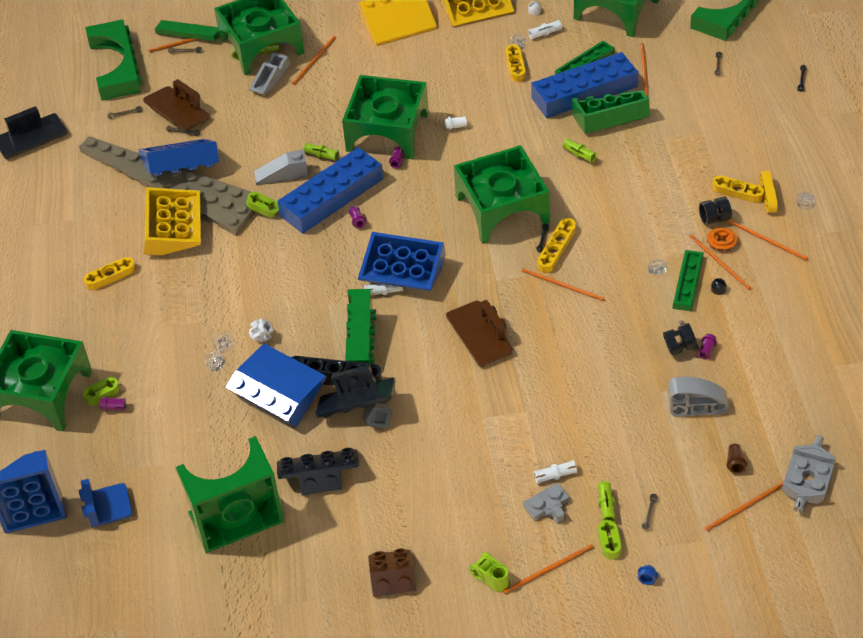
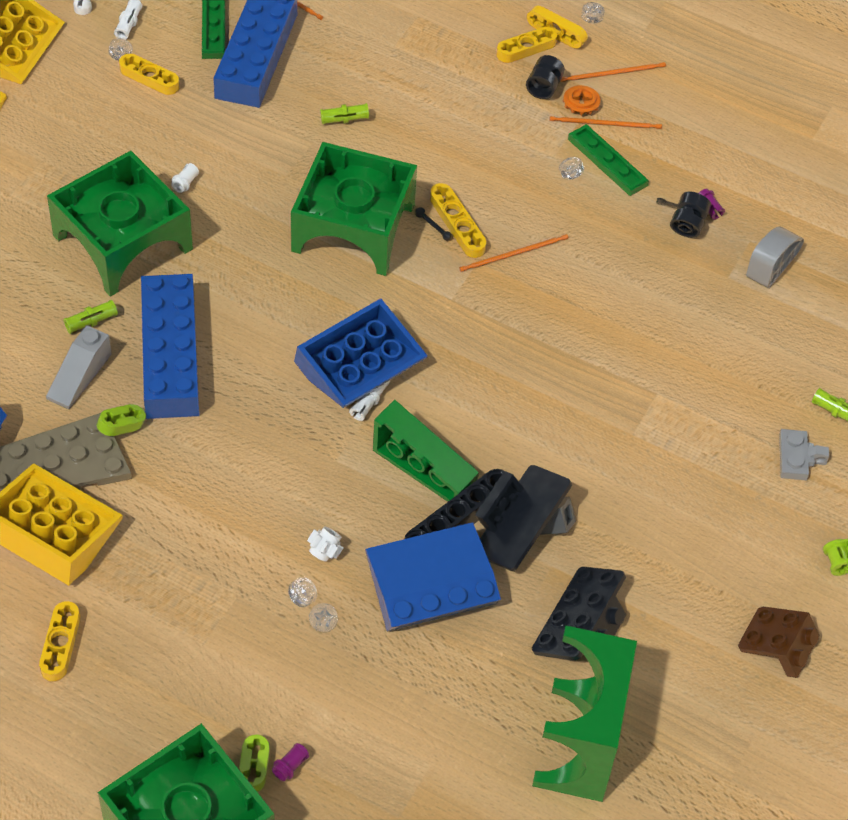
camera: 60 degrees left, 5 degrees up
(357, 219) = (235, 350): magenta pin -> none
(396, 159) = (185, 262): magenta pin -> none
(480, 331) = (518, 355): reddish brown bracket -> none
(555, 471) = (764, 421): white pin -> none
(610, 110) = (319, 55): green wedge -> none
(718, 286) = (639, 144): black hinge -> none

